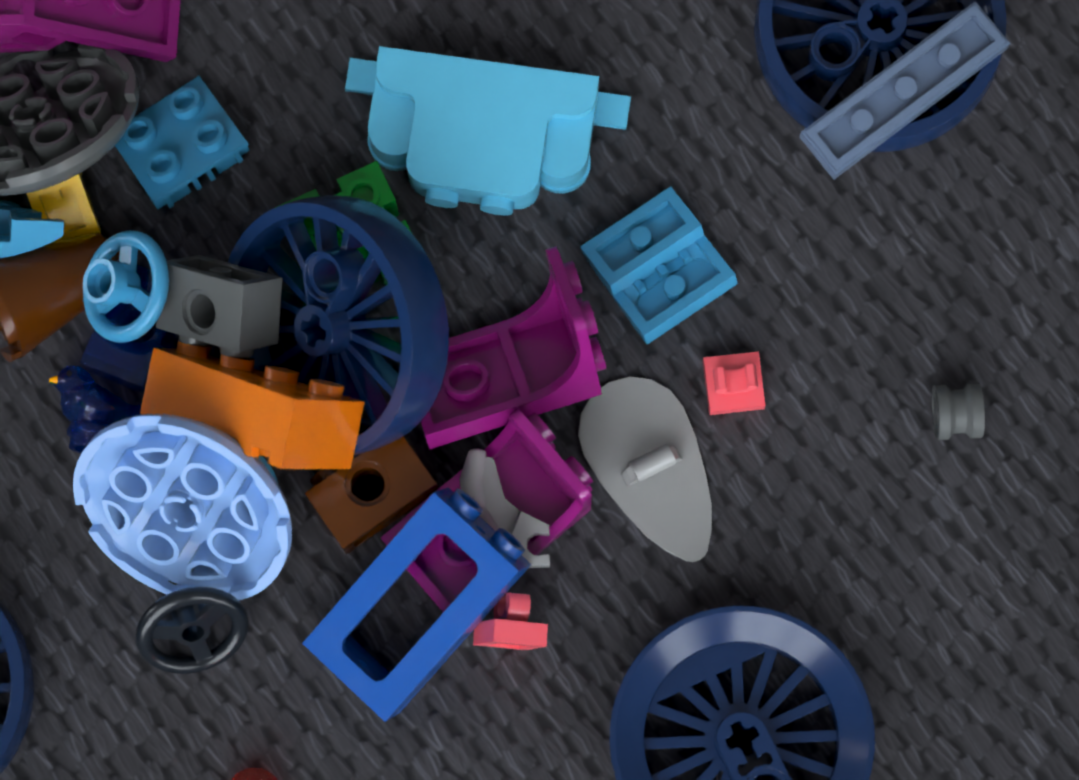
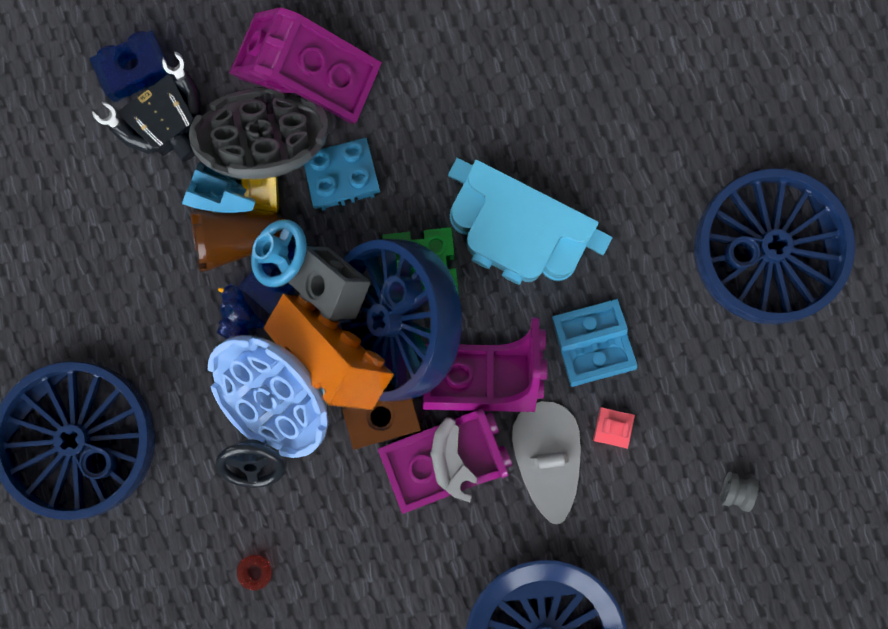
camera: 15 degrees right, 5 degrees up
(499, 568) = (420, 455): blue piece -> none
(510, 626) = (435, 527): coral tile -> none
(904, 90) = (776, 292): sand blue tile -> none

